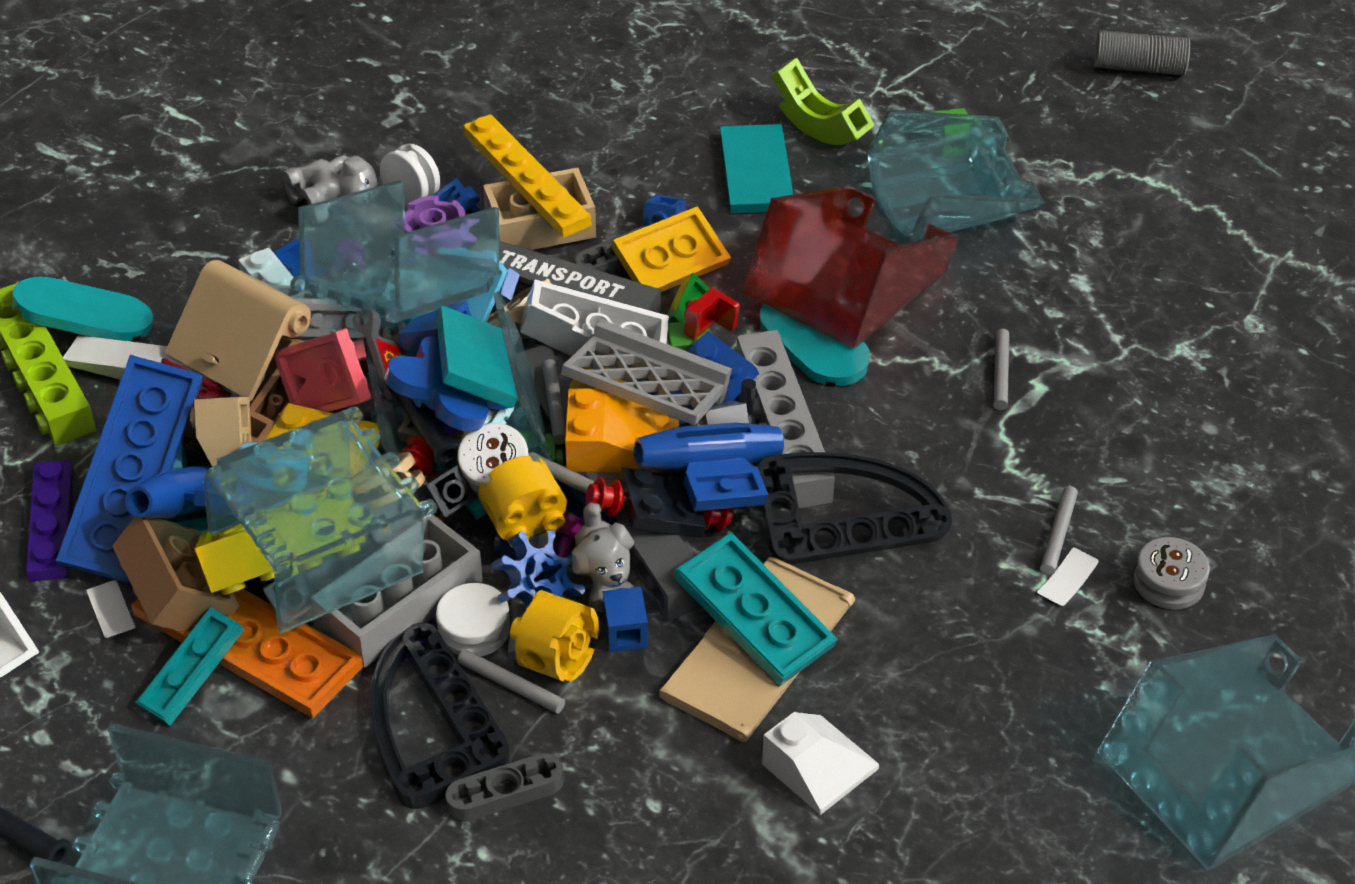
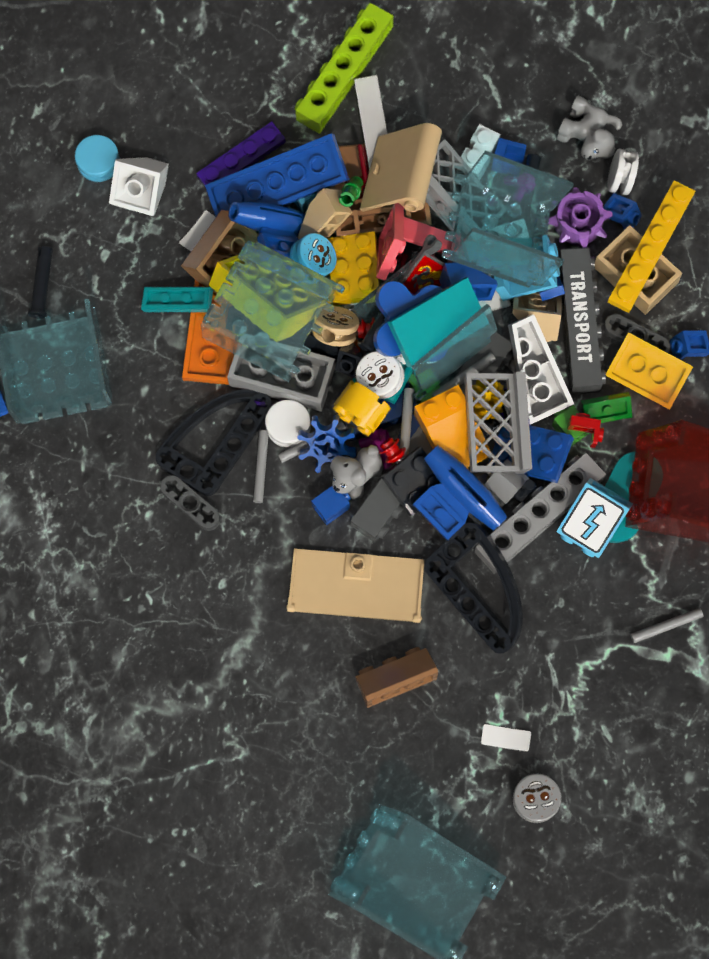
camera: 65 degrees right, 30 degrees up
(81, 309) = (394, 64): teal tile -> none
(221, 386) = (351, 191): none -> green pin
(555, 636) = (291, 475): yellow brick -> none
(755, 608) = (370, 572): teal tile -> none
(815, 759) = (292, 656): white slope -> none
(831, 359) = (594, 518): none -> panel
(922, 642) = (396, 676): none -> medium nougat slope
(1059, 530) = (541, 717): light grey bar -> none

